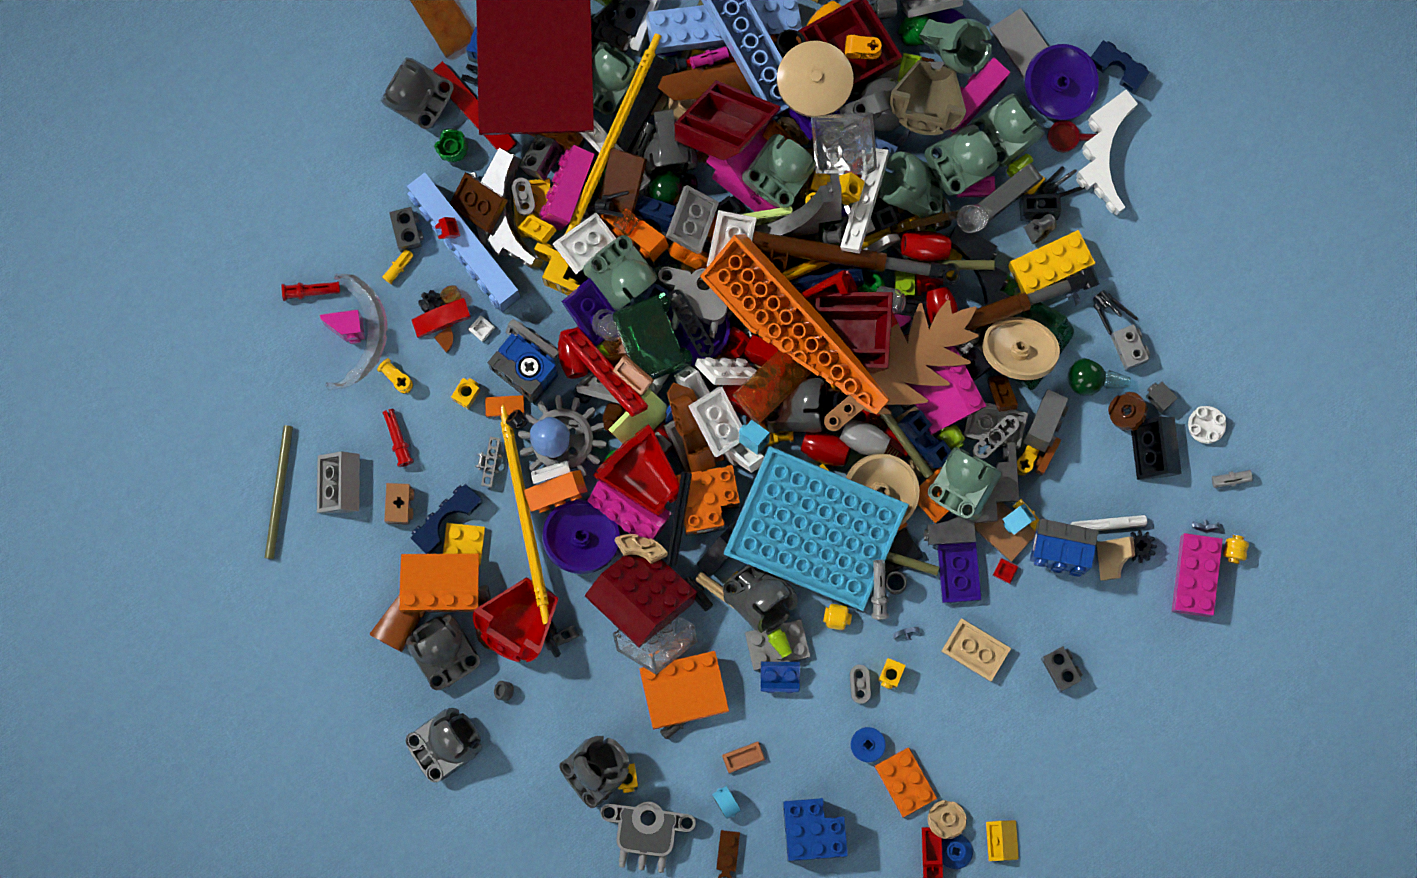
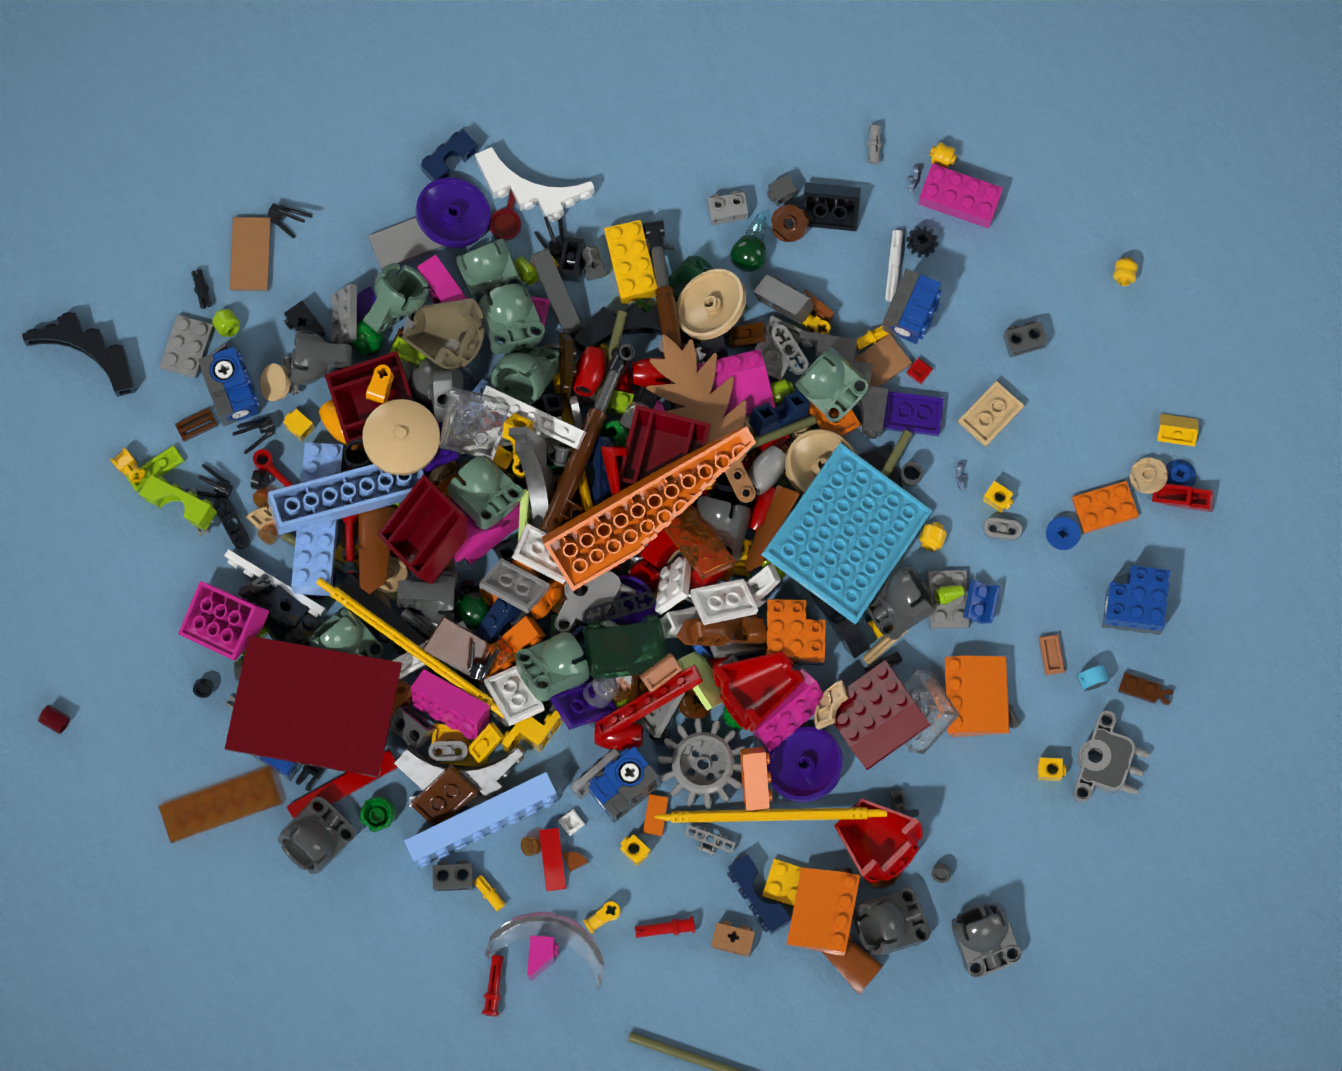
camera: 75 degrees left, 5 degrees down
(338, 482) = (699, 996): light grey slope -> none
(430, 301) = (532, 868): black plant -> none
(449, 228) = (468, 825): red tile -> none
(515, 418) = (673, 804): black tile -> none
(550, 437) = (702, 770): medium blue piece -> none
(550, 472) = (735, 778): white tile -> none
(596, 769) = (1040, 794): dark grey piece -> none
(679, 517) = (811, 660): black axle -> none
(709, 57) = (351, 537): dark pink pin -> none
(753, 436) = (746, 570): medium azure brick -> none
(829, 458) = (779, 508): none -> dark orange panel
(879, 599) = (924, 491): light grey pin -> none
(972, 218) = (572, 321): clear helmet -> none
(1018, 519) = (875, 345): medium azure brick -> none
(1104, 301) = (676, 221): black plant -> none
(1113, 555) = (926, 264): tan tile -> none
(1155, 756) = (1125, 271): none -> yellow piece
(1207, 424) = (817, 155): white dish -> none

